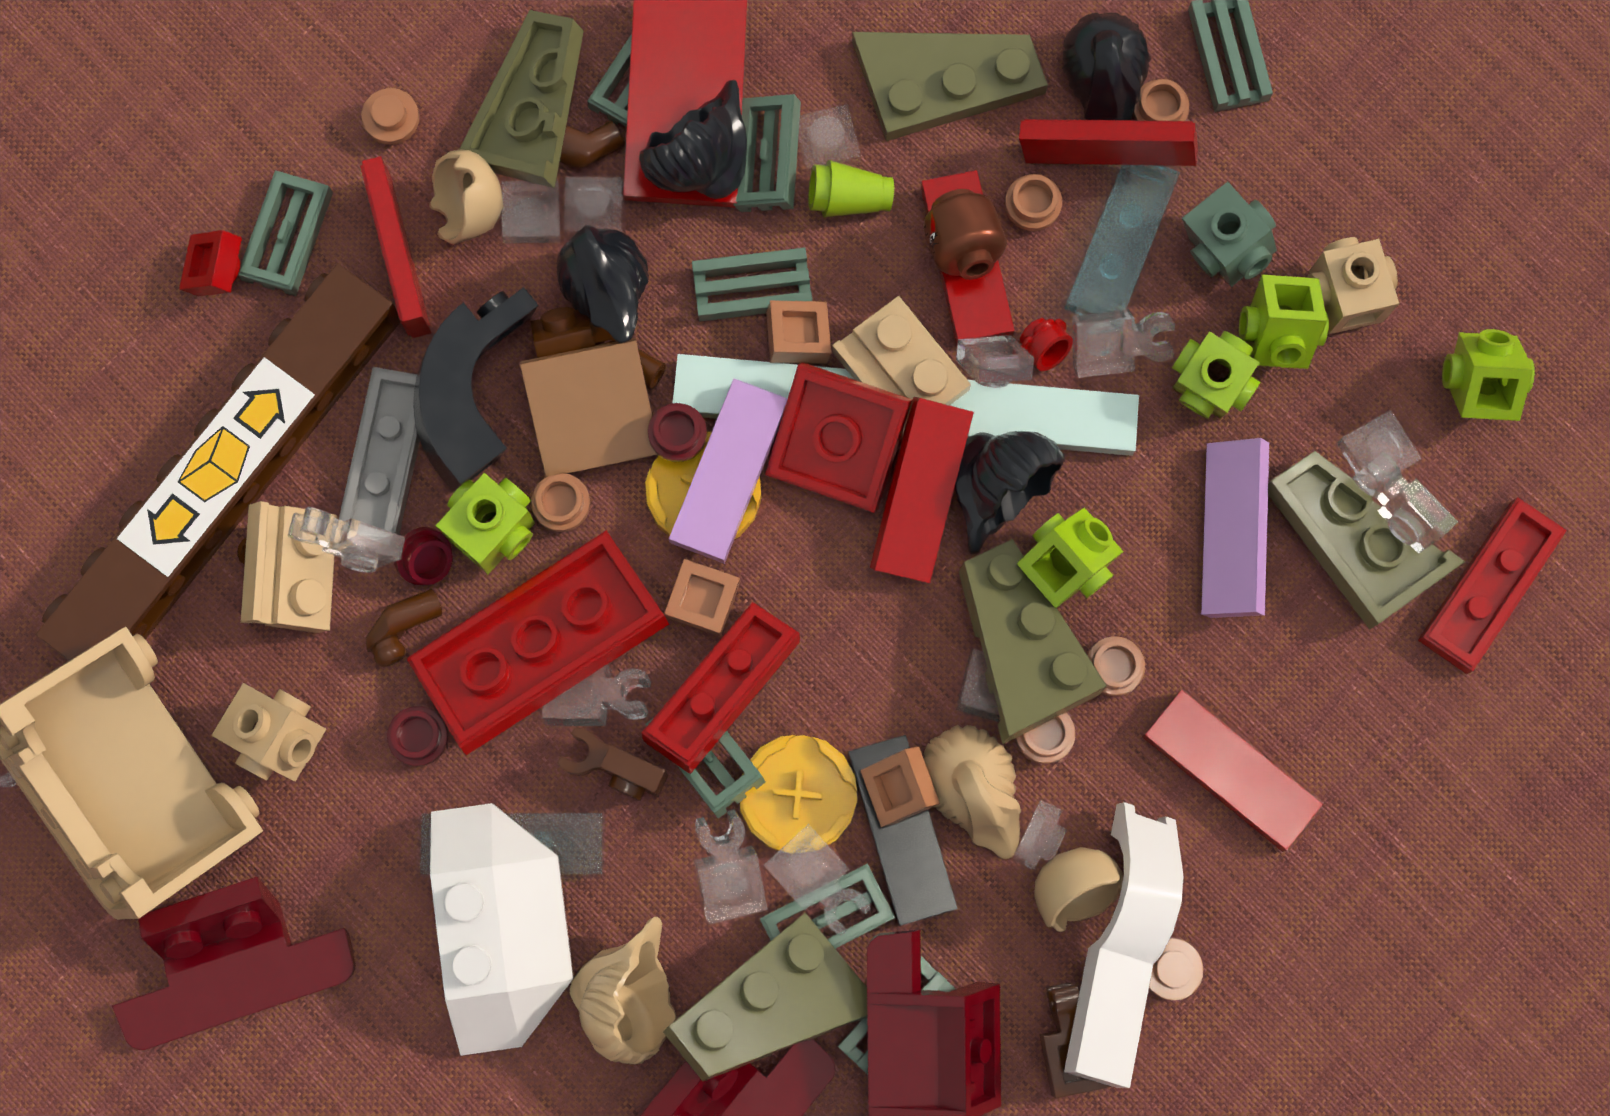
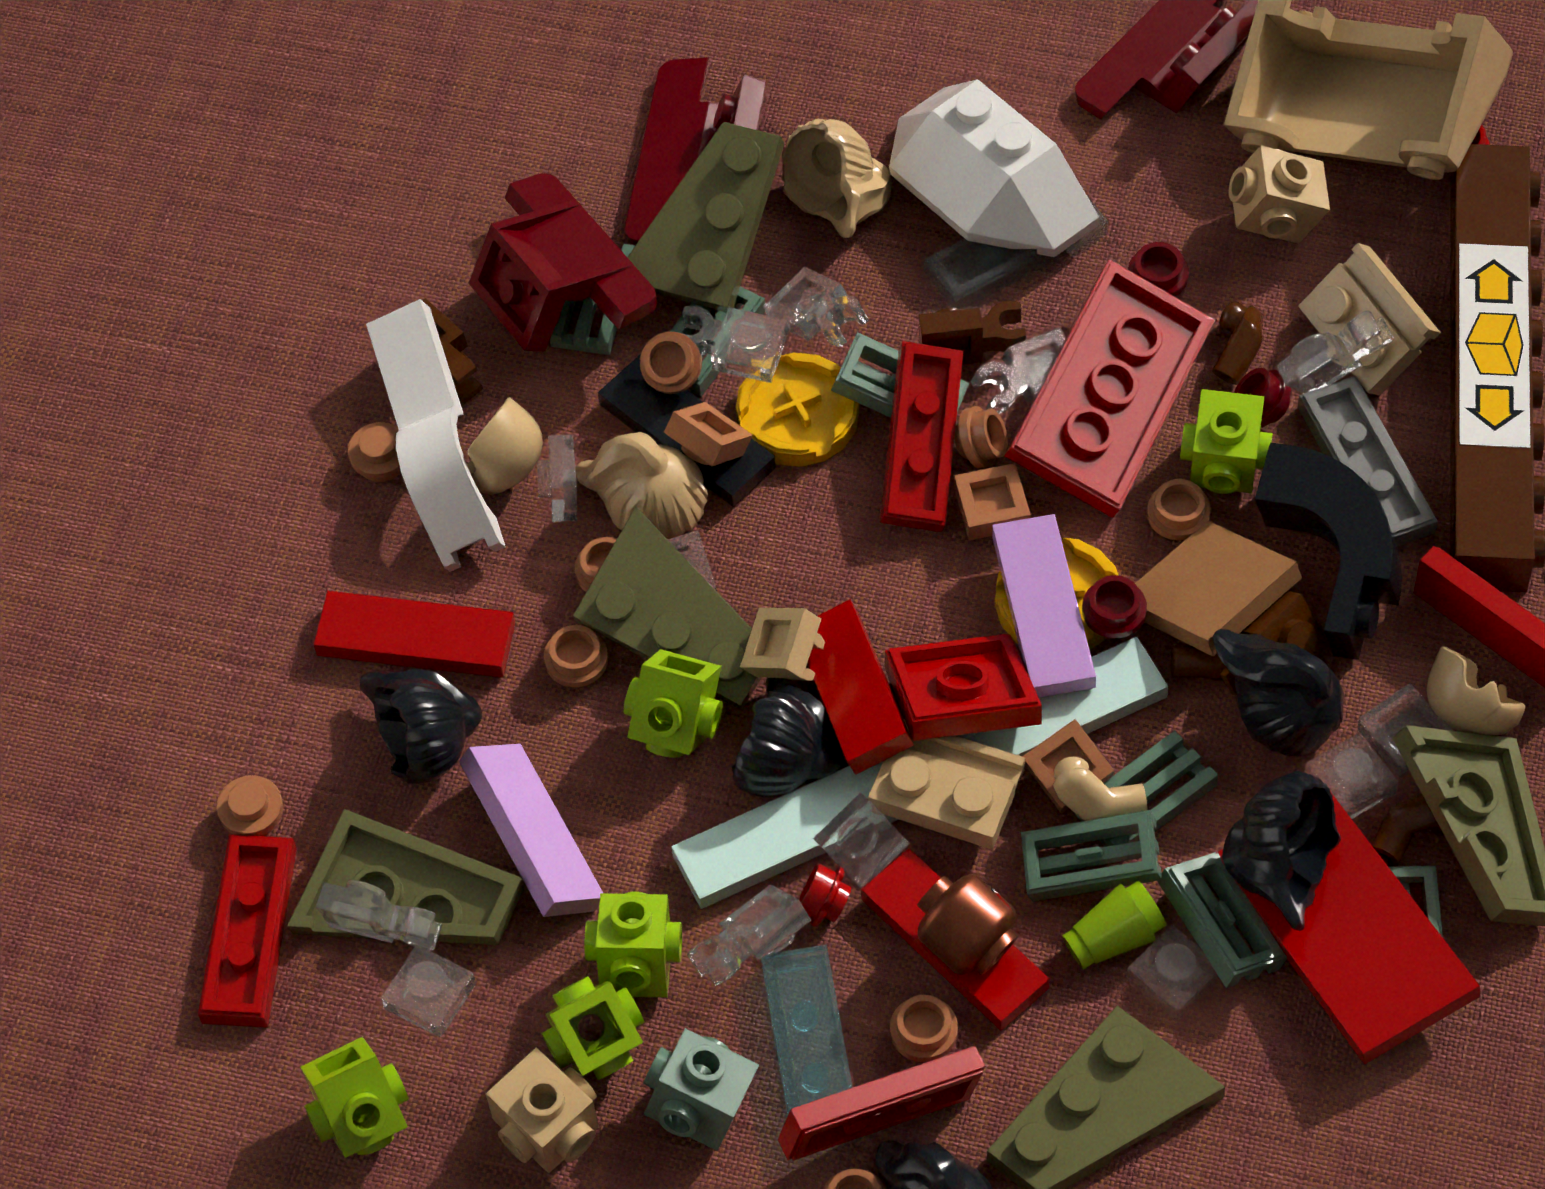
camera: 155 degrees right, 20 degrees down
(672, 660) = (981, 436): none -> nougat plate
(798, 278) = (1090, 796): none -> tan arm
(818, 266) = (1095, 879): none -> sand green tile
(887, 884) = (670, 362): none -> nougat plate
(962, 543) = (782, 643): none -> tan tile
(1270, 669) = (421, 720): none -> black hair
(1444, 687) = (250, 806): none -> nougat plate

